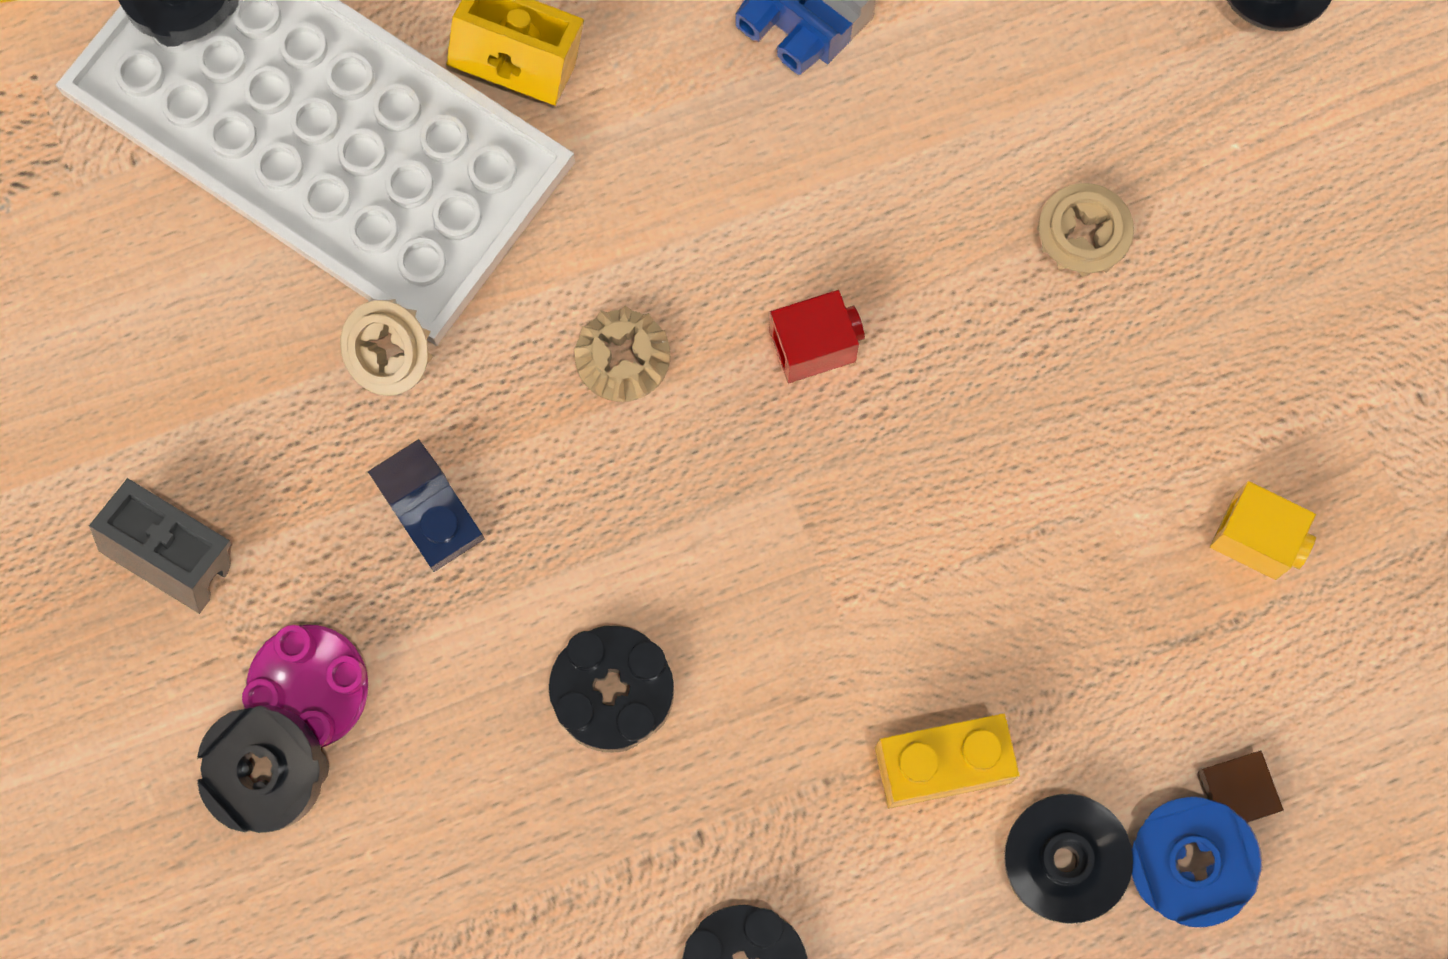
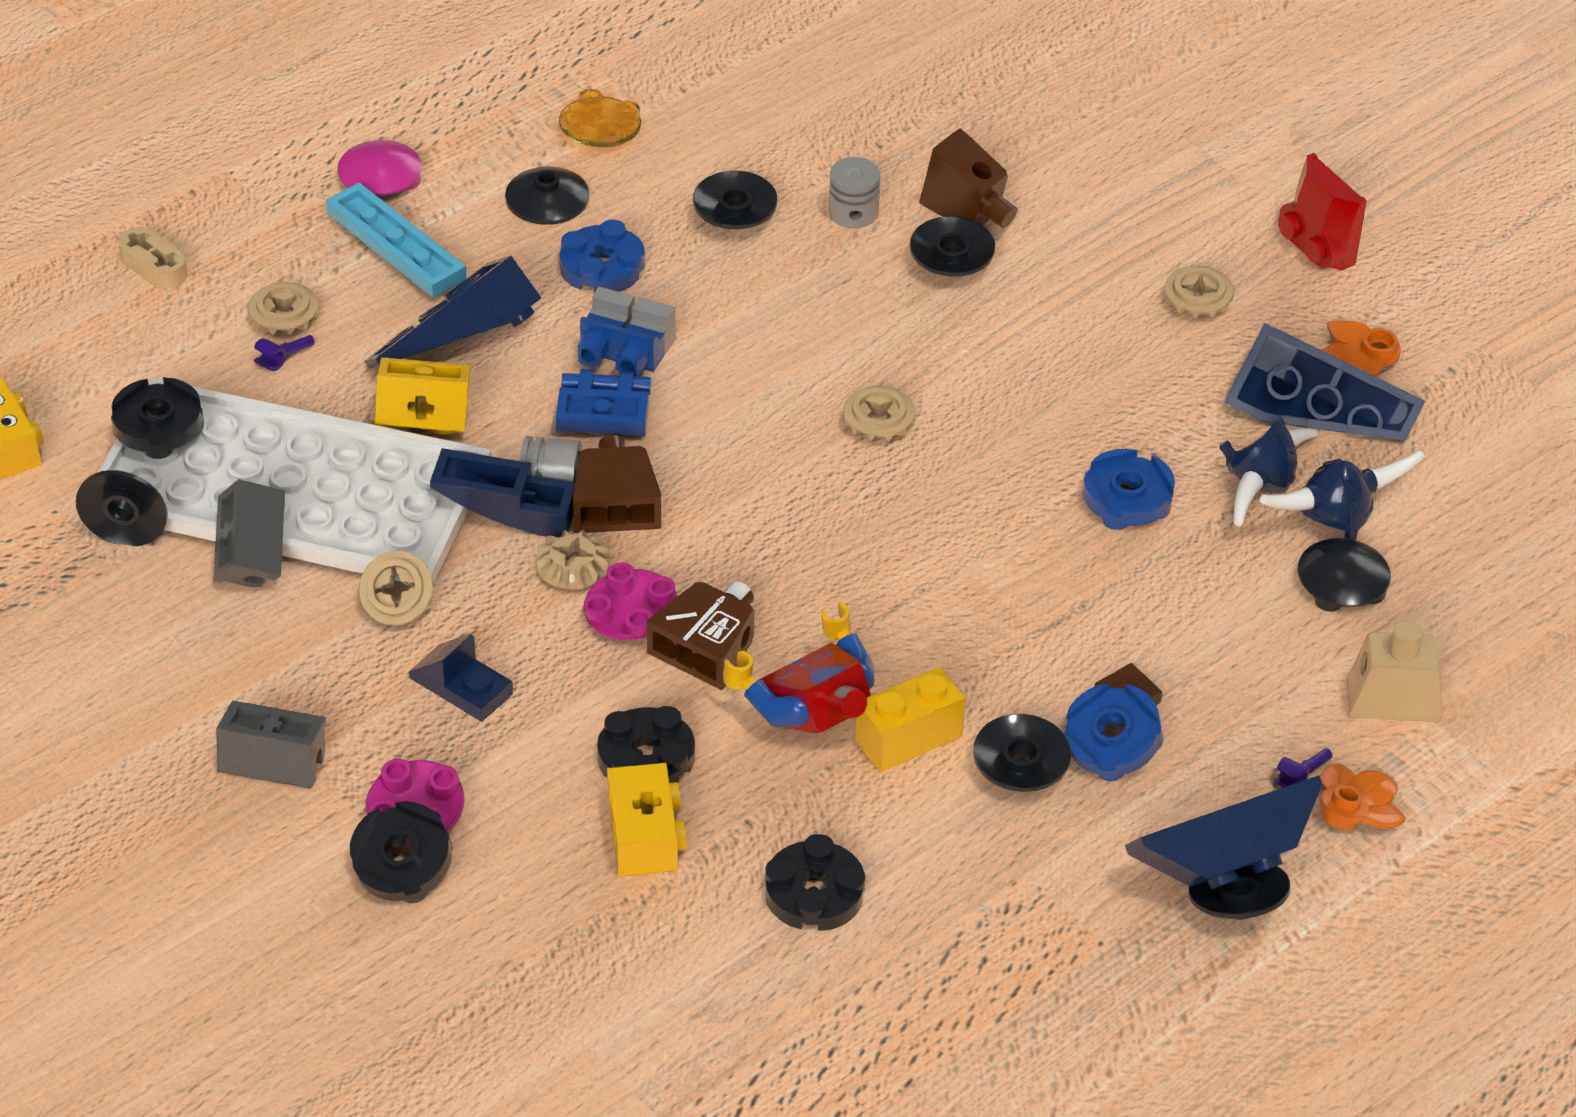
camera: 20 degrees left, 30 degrees down
(90, 122) = (121, 508): none -> black dish
(232, 212) = (249, 534): none -> dark grey hinge
(556, 775) = (644, 820): none -> yellow brick
(565, 233) = (505, 492): none -> dark blue slope
(638, 200) = (552, 459): none -> light grey piece
(668, 451) = (626, 600): none -> dark pink dish
(707, 259) = (615, 489): none -> reddish brown torso
(738, 122) = (603, 403): none -> blue plate
(744, 530) = (703, 630): none -> reddish brown torso
(816, 335) = (710, 511): red brick -> none
(845, 683) = (814, 689): none -> torso
(1265, 531) = (1078, 541): yellow brick -> none
(1340, 482) = (1125, 507): none -> blue plate

